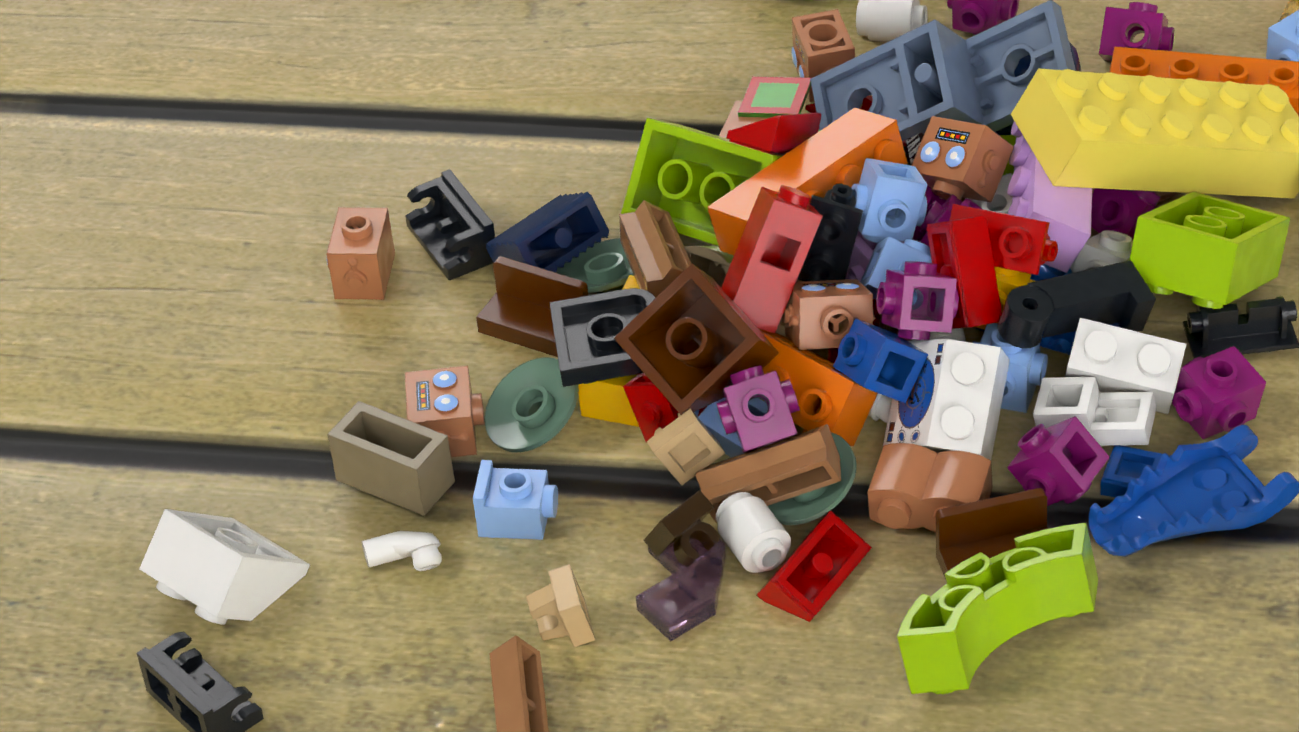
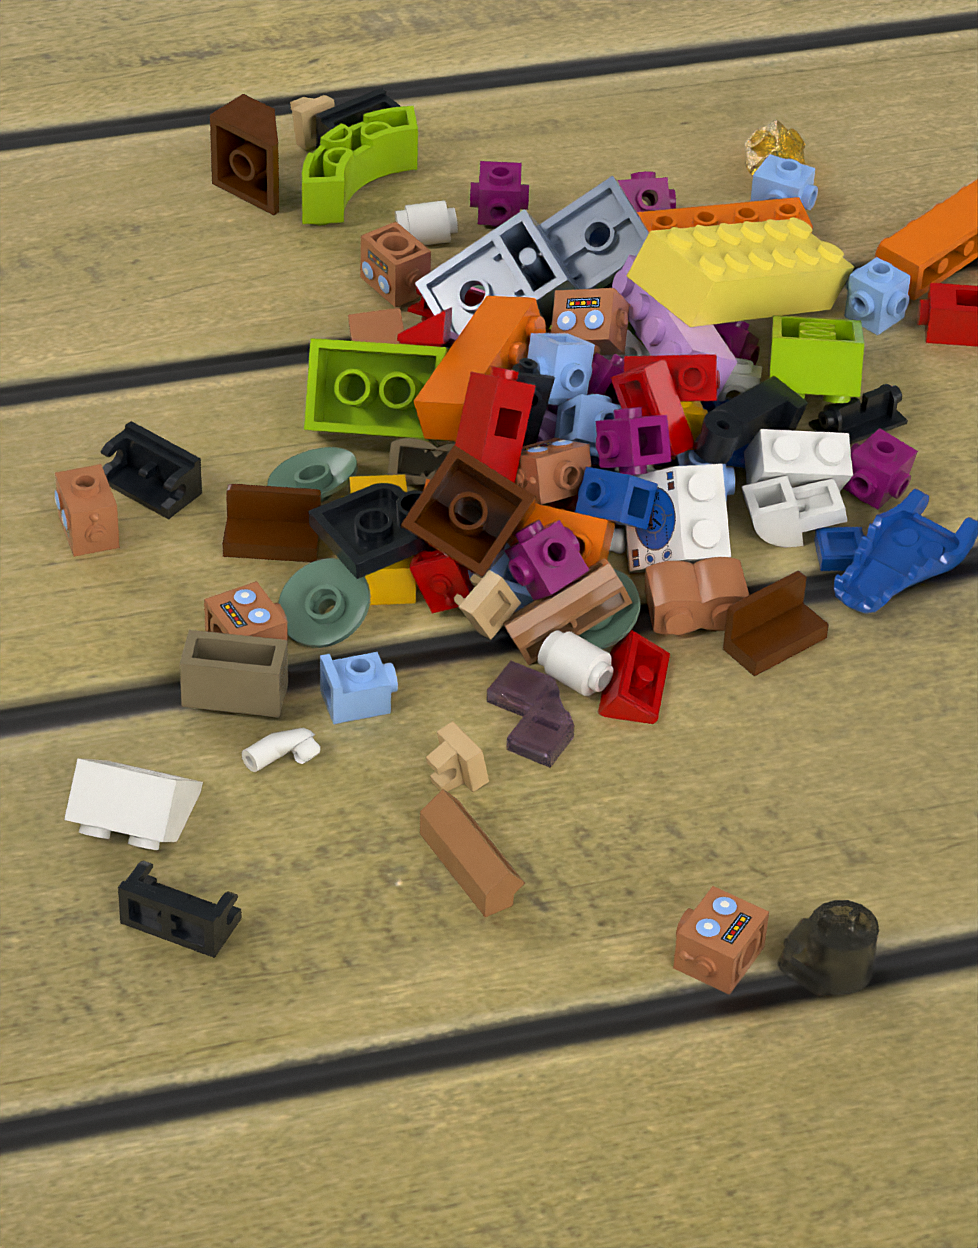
camera: 30 degrees left, 0 degrees up
(552, 233) = (253, 456): dark blue brick -> none
(652, 247) = (367, 453): medium nougat piece -> none
(681, 526) = (526, 672): dark brown tile -> none
(774, 96) = (386, 306): piece -> none
(992, 601) = (808, 663): lime brick -> none
(1058, 460) = (789, 546): magenta brick -> none

